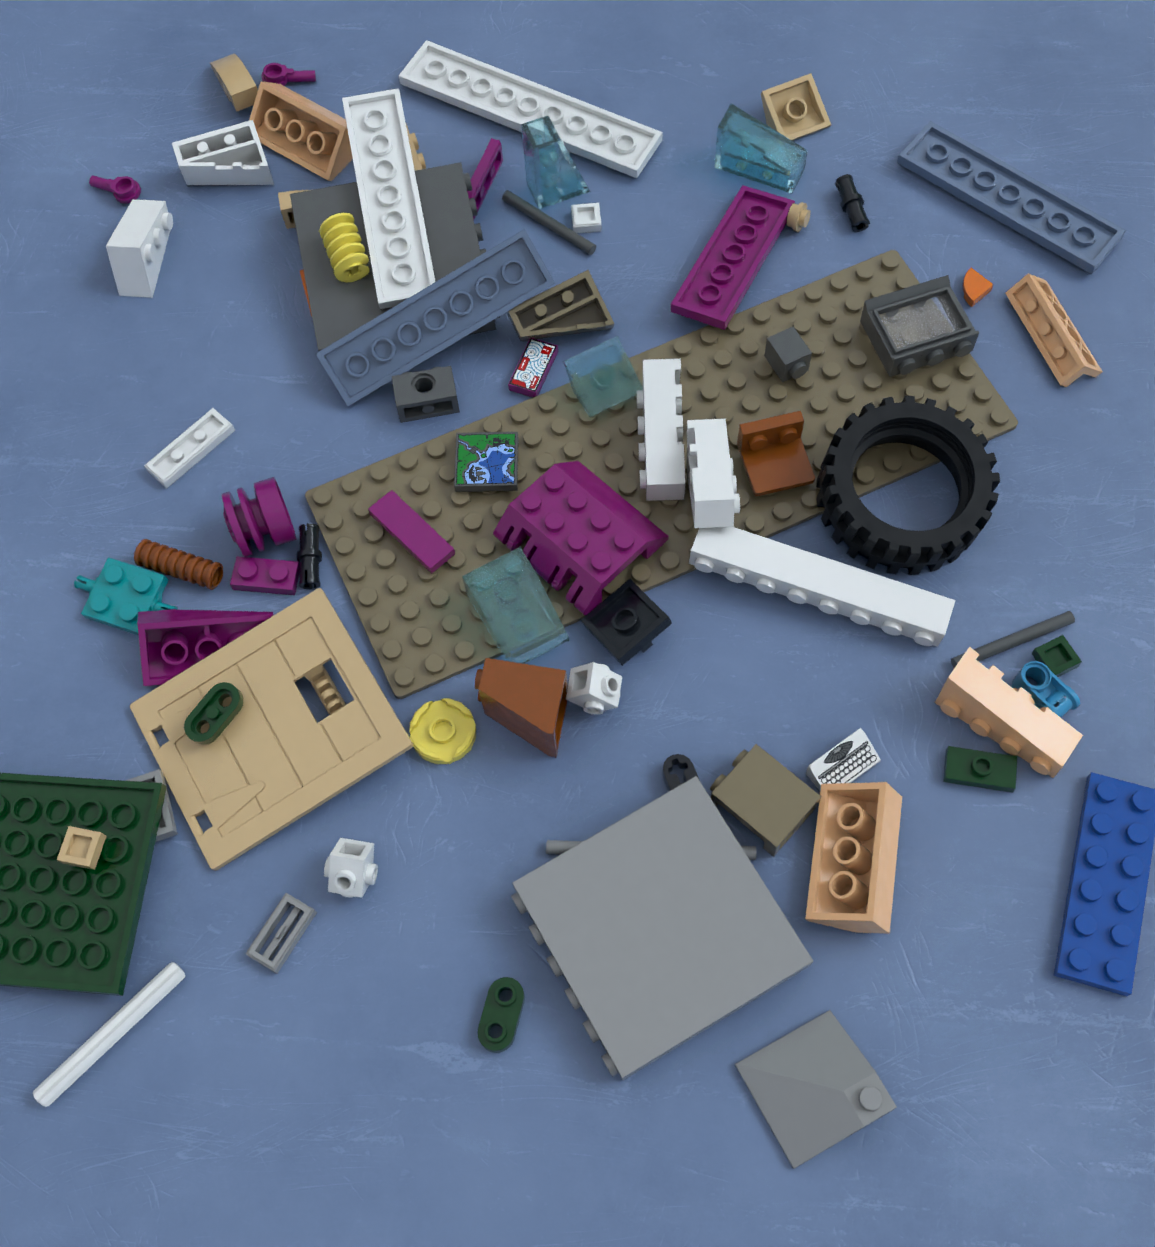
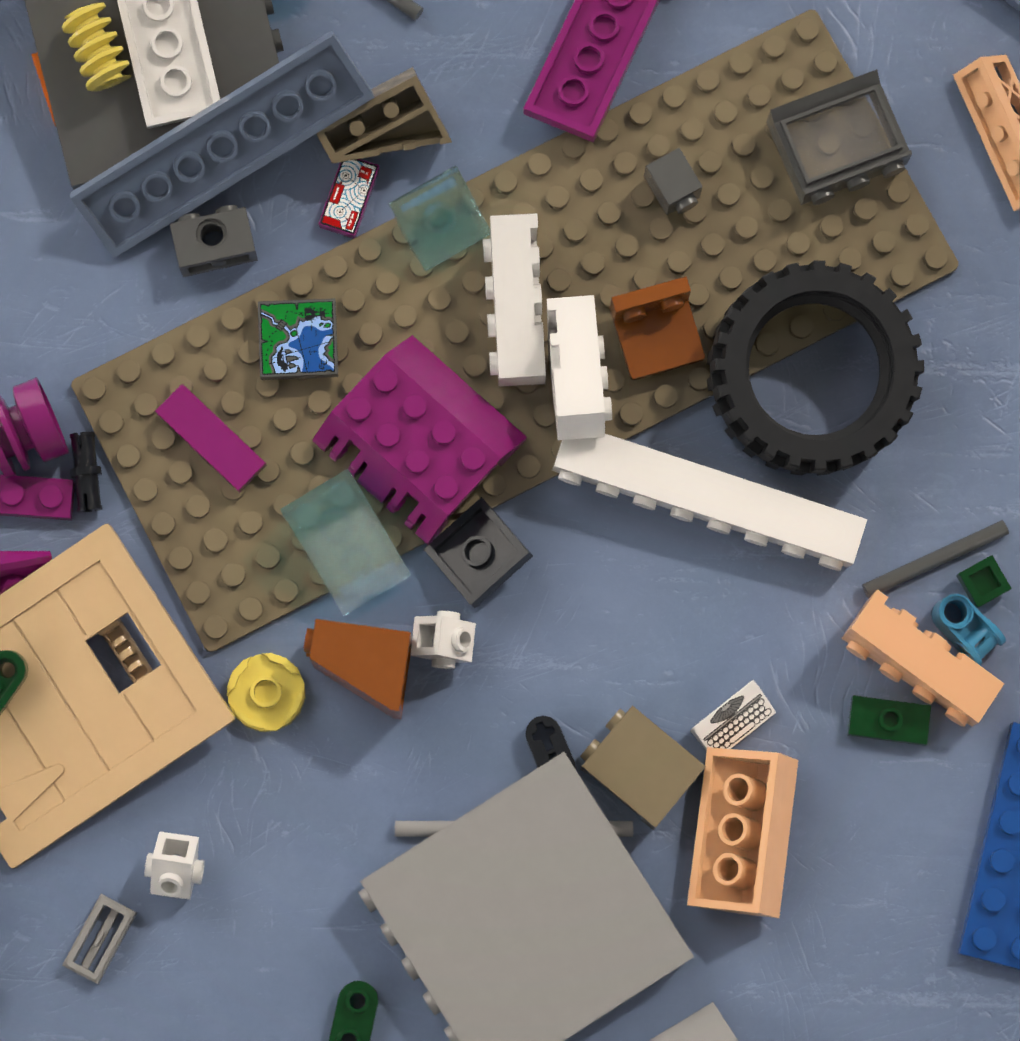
camera: 10 degrees left, 15 degrees up
(975, 287) = (915, 66): orange tile -> none

